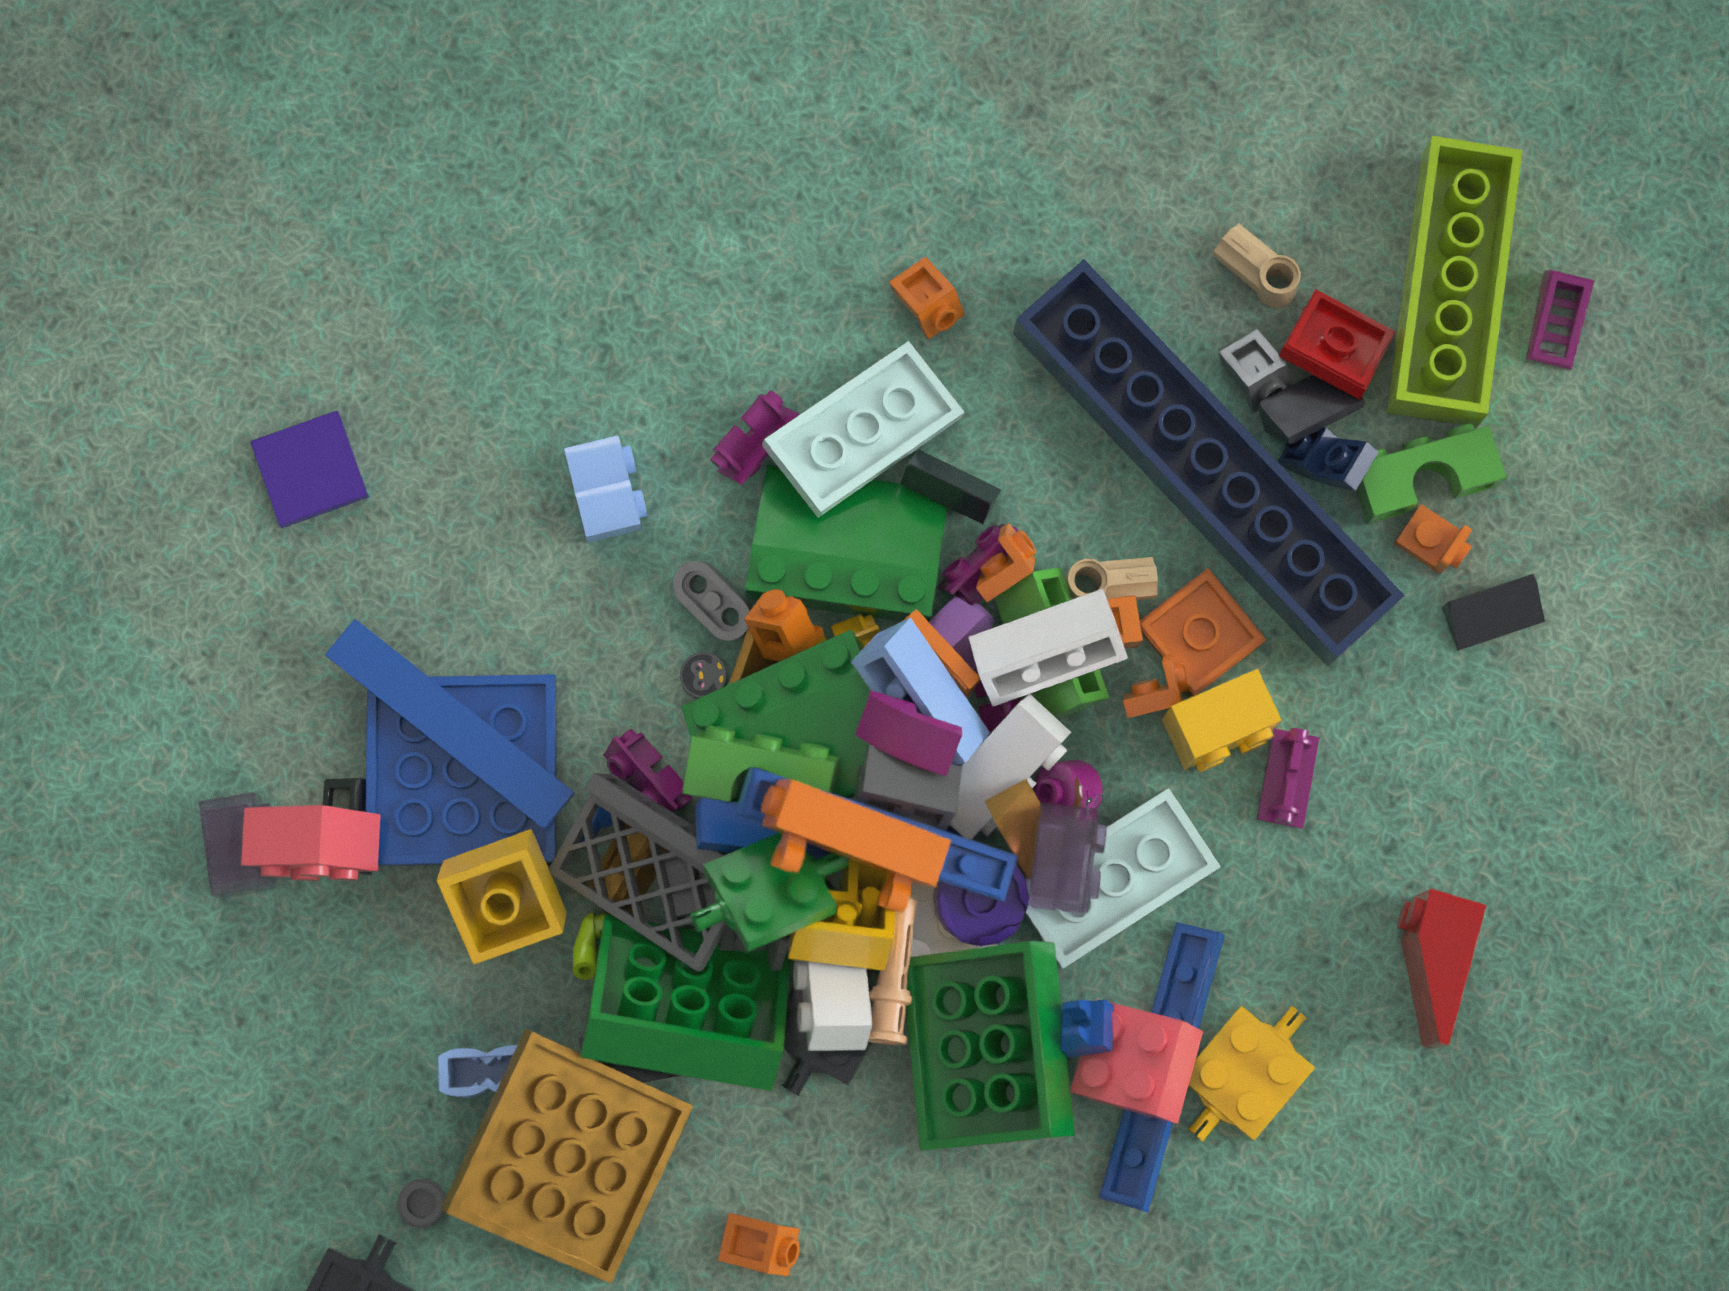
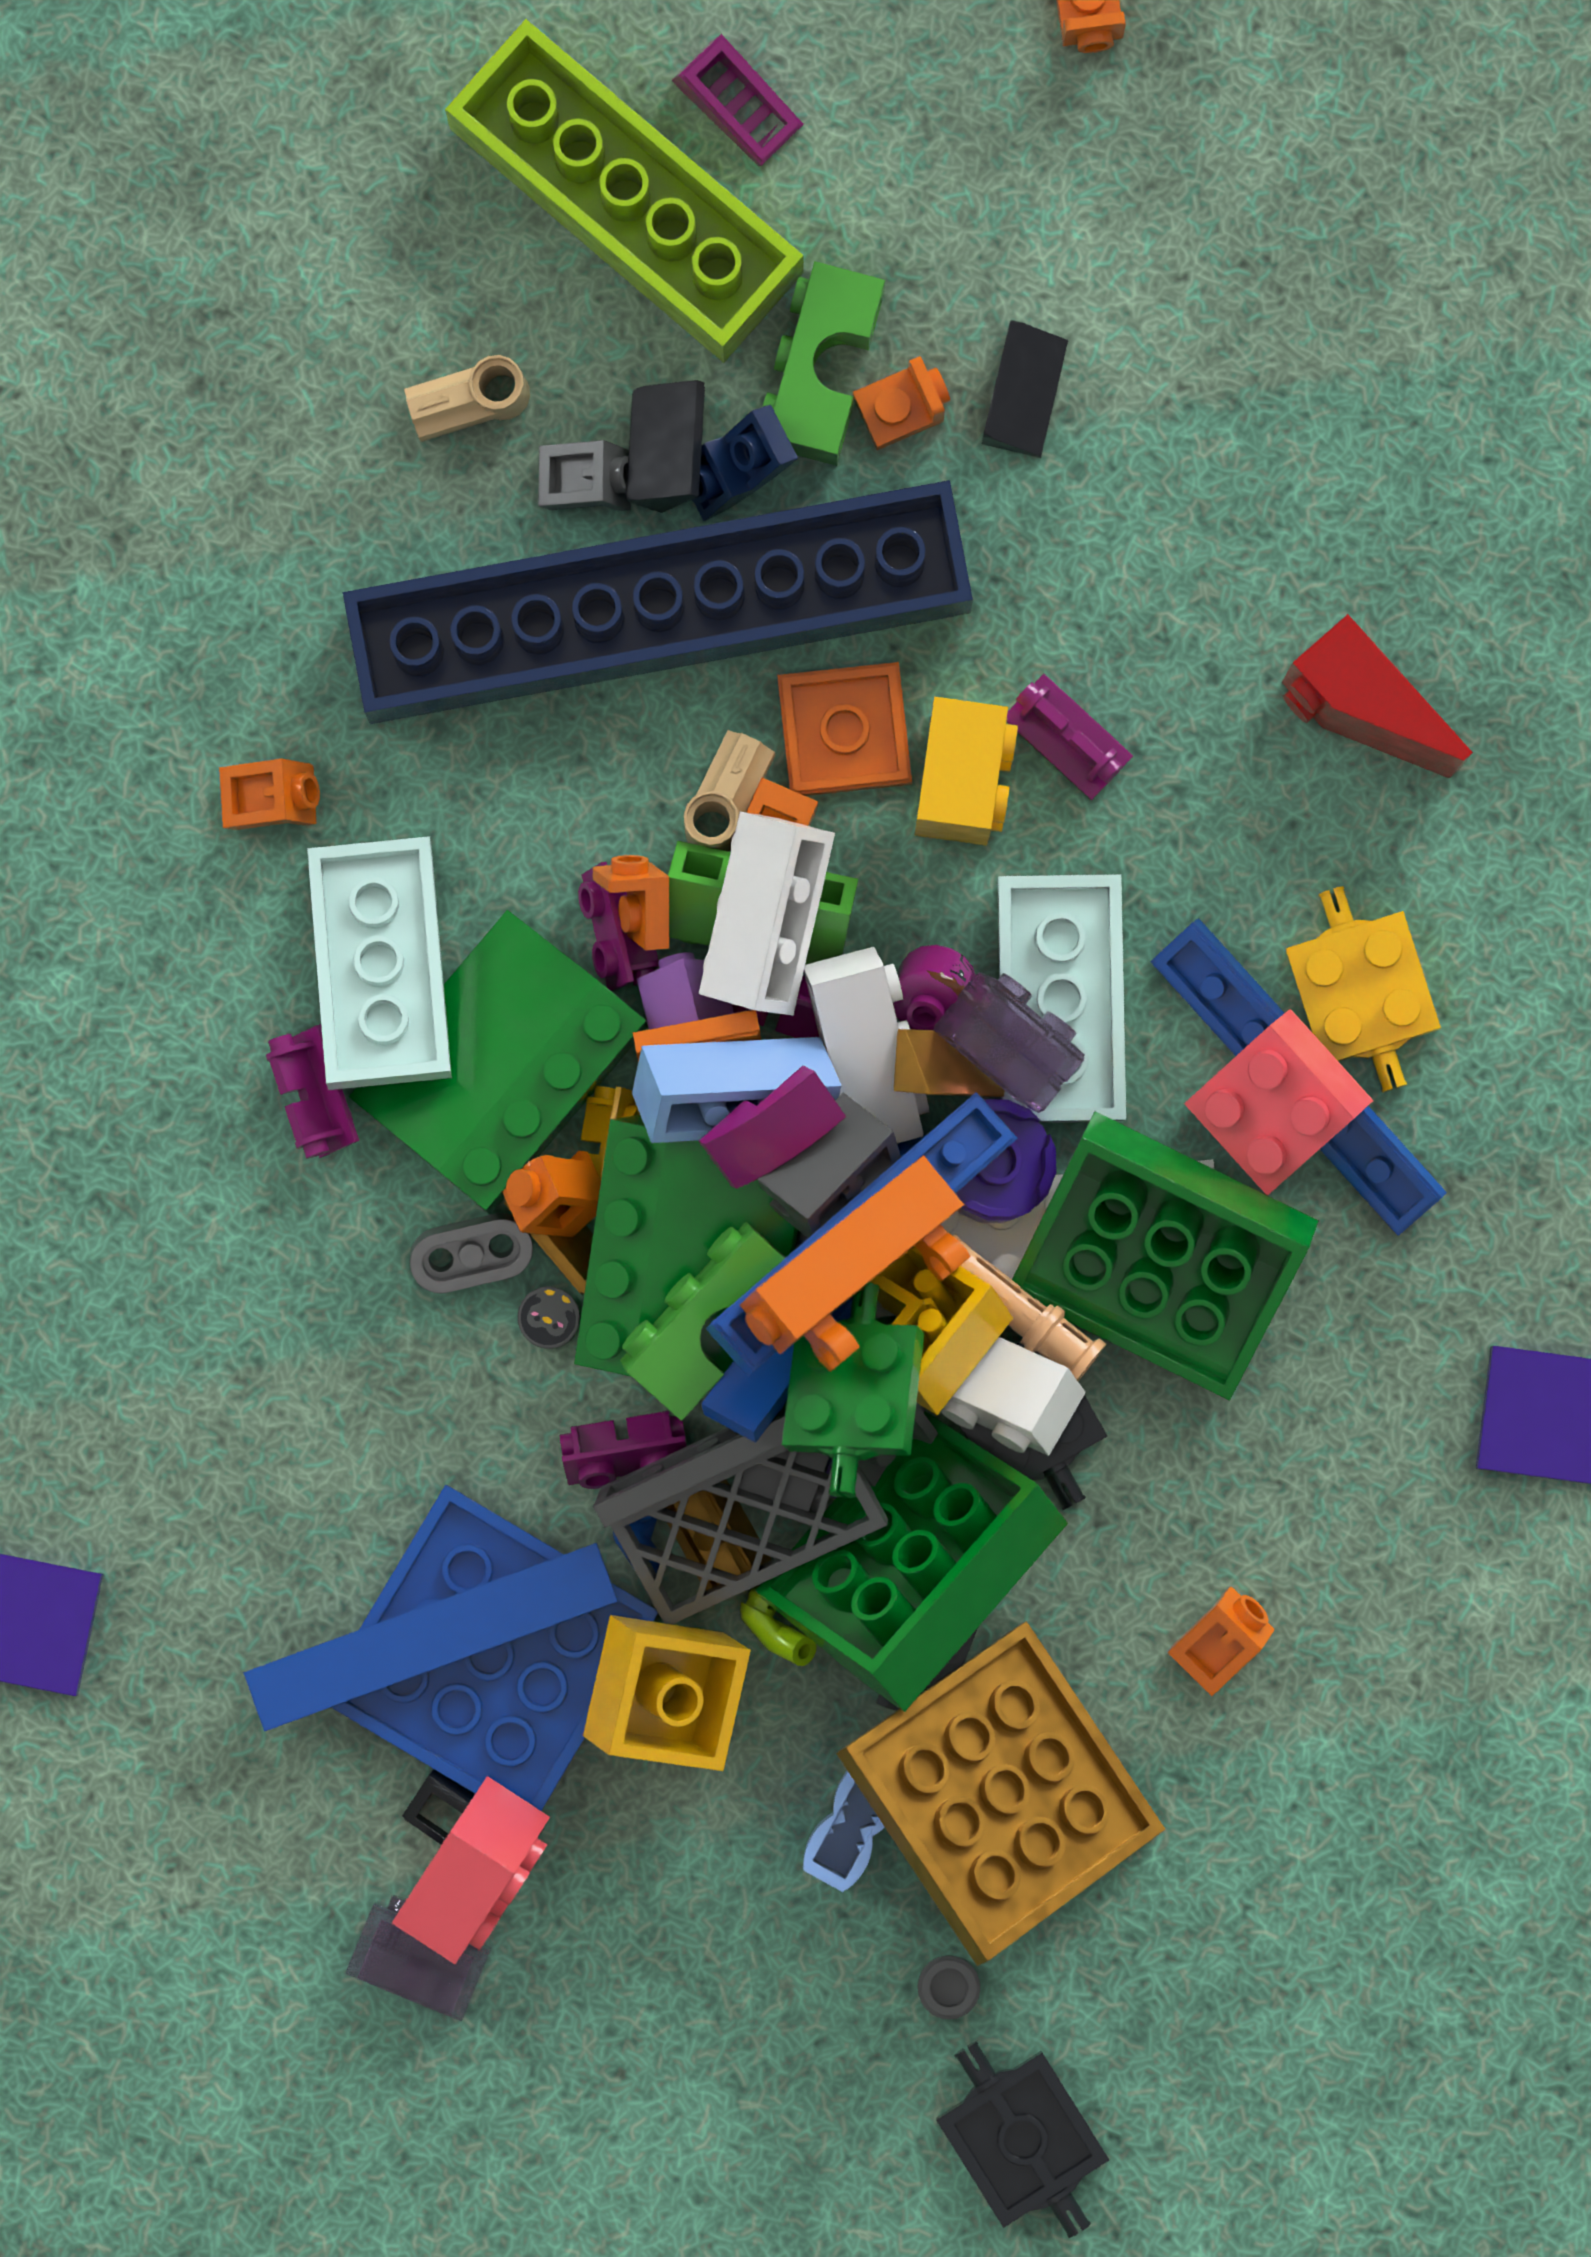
camera: 55 degrees left, 5 degrees up
(604, 488) = (264, 1298): light blue brick -> none
(950, 486) = (505, 905): black slope -> none
(1086, 1027) = (1211, 1134): blue tile -> none
(1151, 697) = (885, 831): orange bracket -> none
(1337, 344) = (613, 368): red plate -> none

